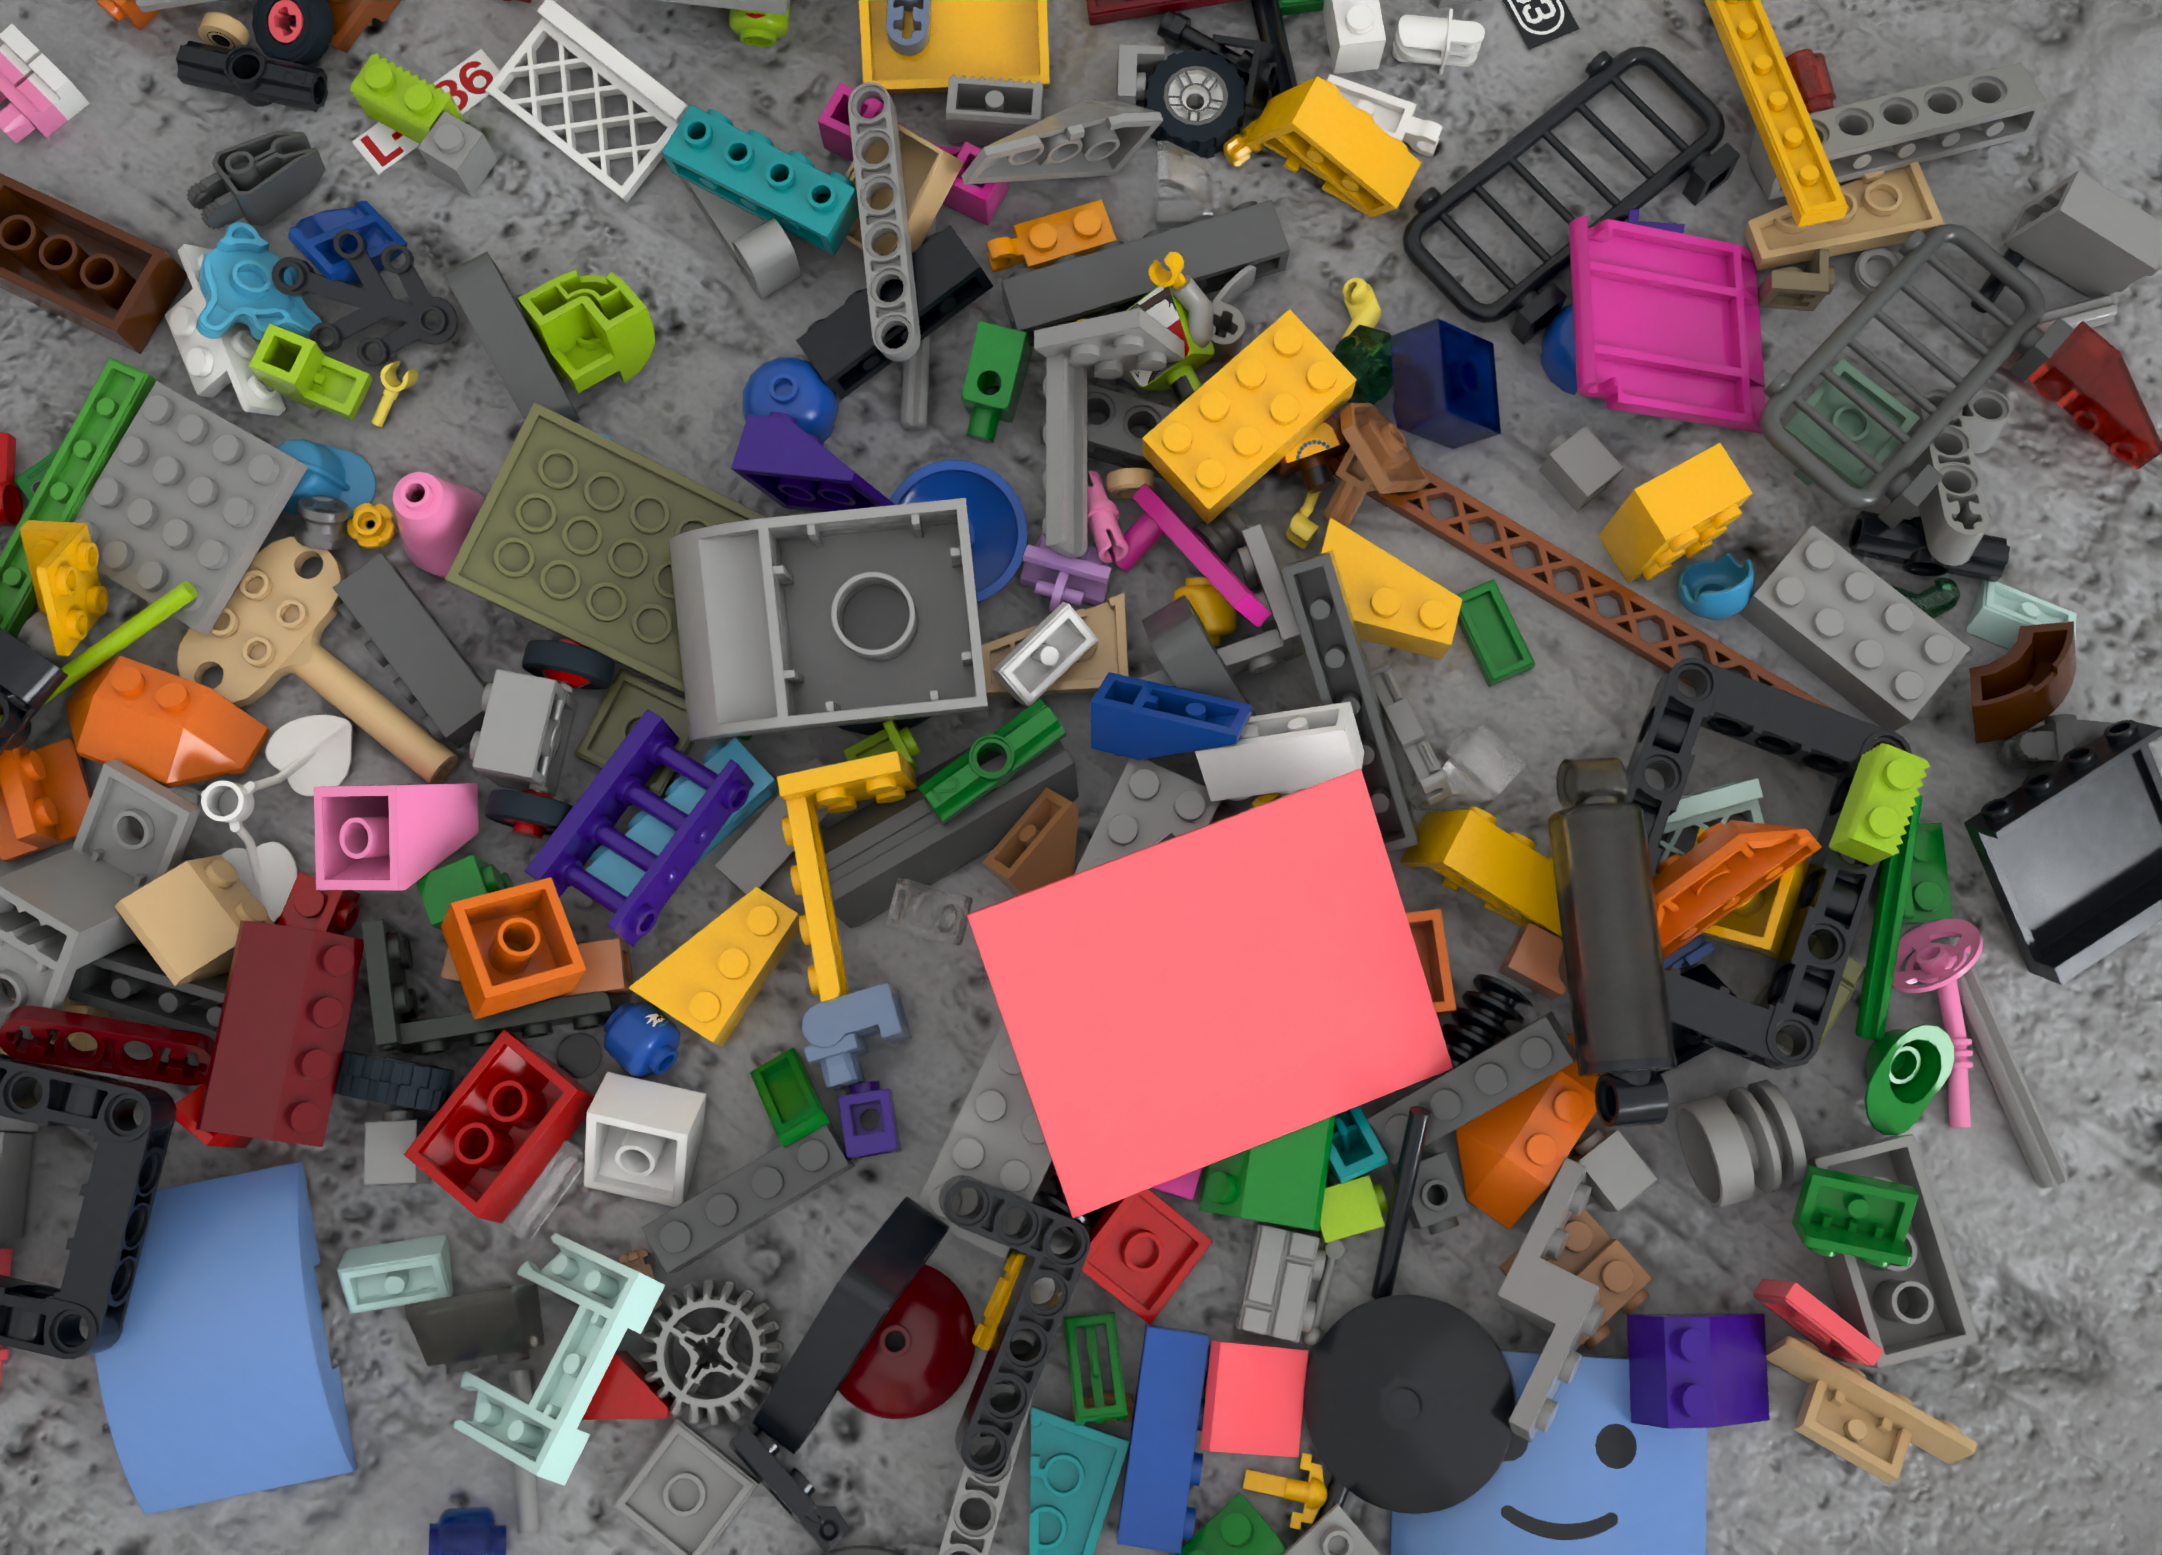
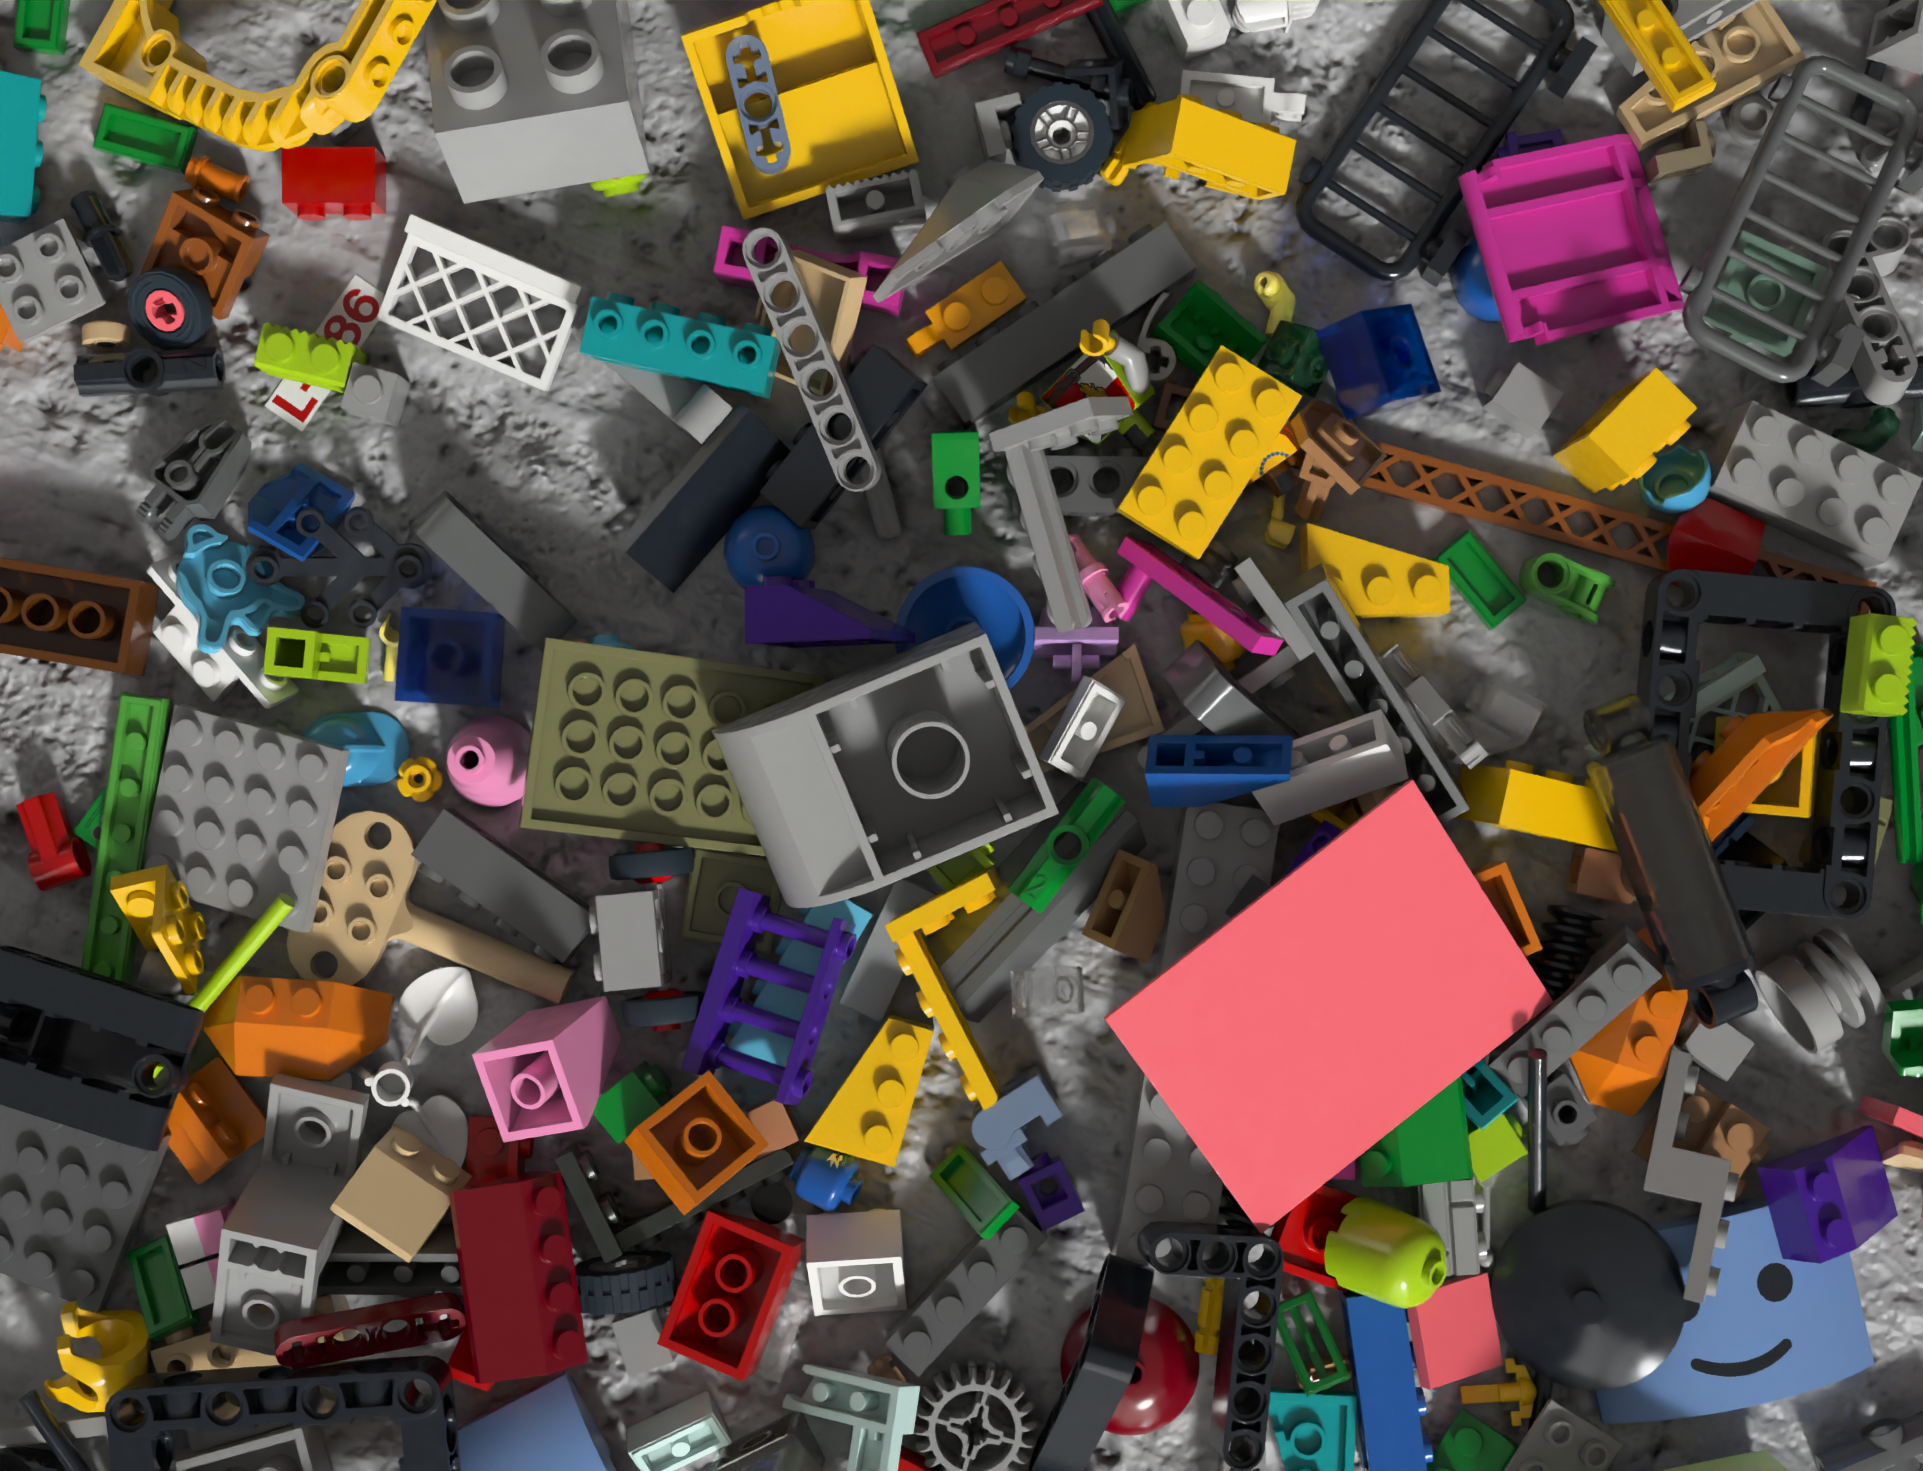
camera: 15 degrees left, 10 degrees up
(322, 522) = (376, 793): flat silver wheel -> none
(440, 413) = (450, 657): none -> clear blue brick
(590, 327) = (561, 534): lime brick -> none
(736, 331) = (704, 499): none -> black tile
(1127, 481) = (1109, 536): tan tile -> none
(1201, 1287) = (1386, 1254): none -> lime cylinder
(1270, 300) = (1205, 323): none -> green bracket
(1582, 663) = (1574, 589): none -> bright green piece
(1743, 648) = (1715, 540): none -> red slope

